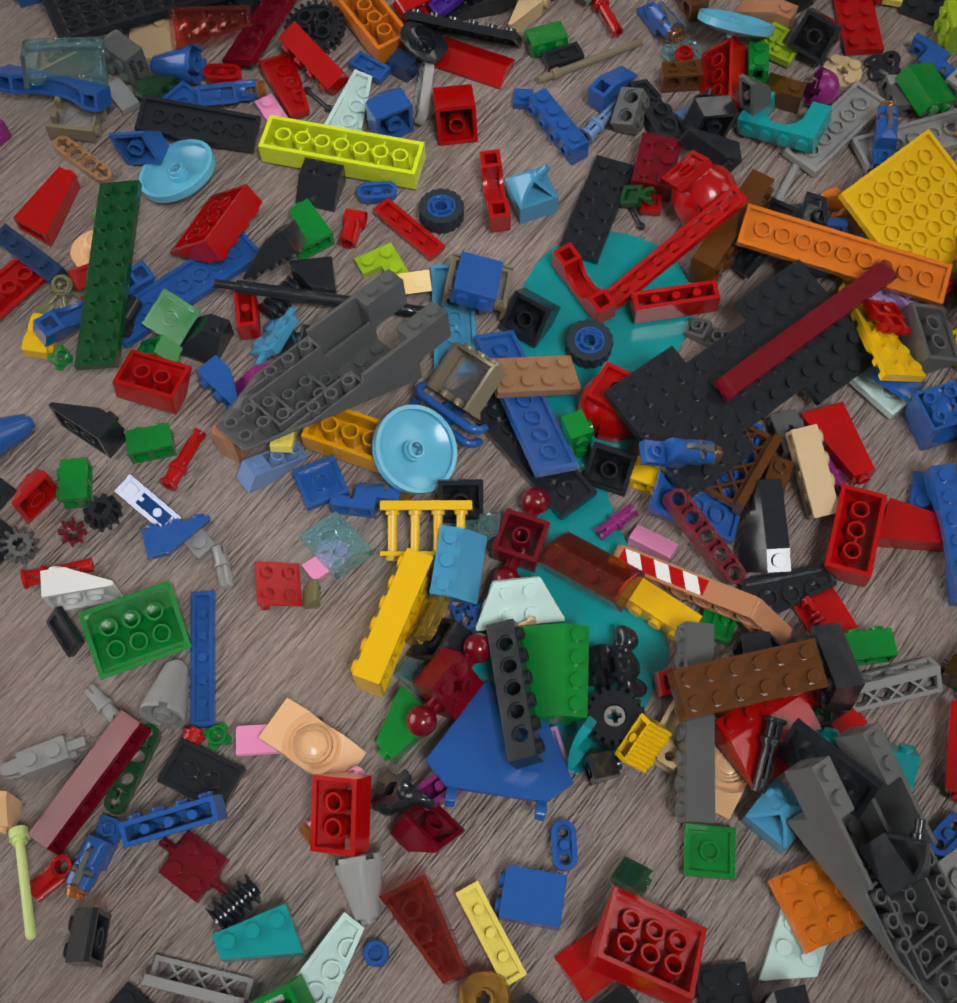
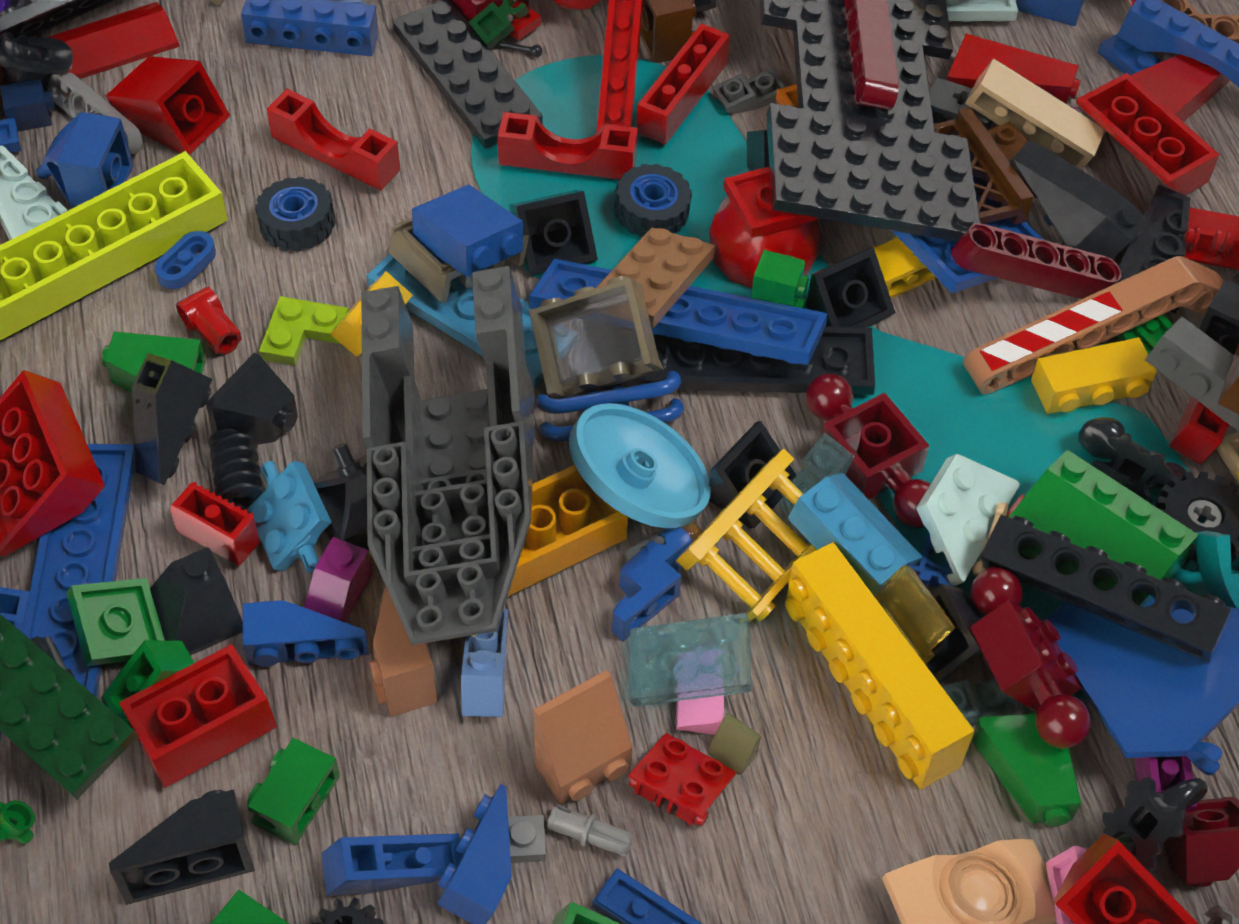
camera: 55 degrees left, 10 degrees down
(178, 468) = (370, 781): red pin -> none
(252, 530) = (581, 739): none -> nougat slope
(297, 294) = (269, 431): black axle -> none
(320, 481) = (569, 618): blue plate -> none
(321, 183) = (97, 305): black slope -> none
(409, 229) = (281, 264): red plate -> none
(521, 98) = (223, 32): blue plate -> none
(531, 194) = (380, 103): dark azure piece -> none
(591, 570) = (987, 402): clear red slope -> none
(616, 522) = (927, 341): magenta pin -> none
(652, 543) = (983, 328): bright pink slope -> none
(679, 452) = (929, 188): blue plate -> none

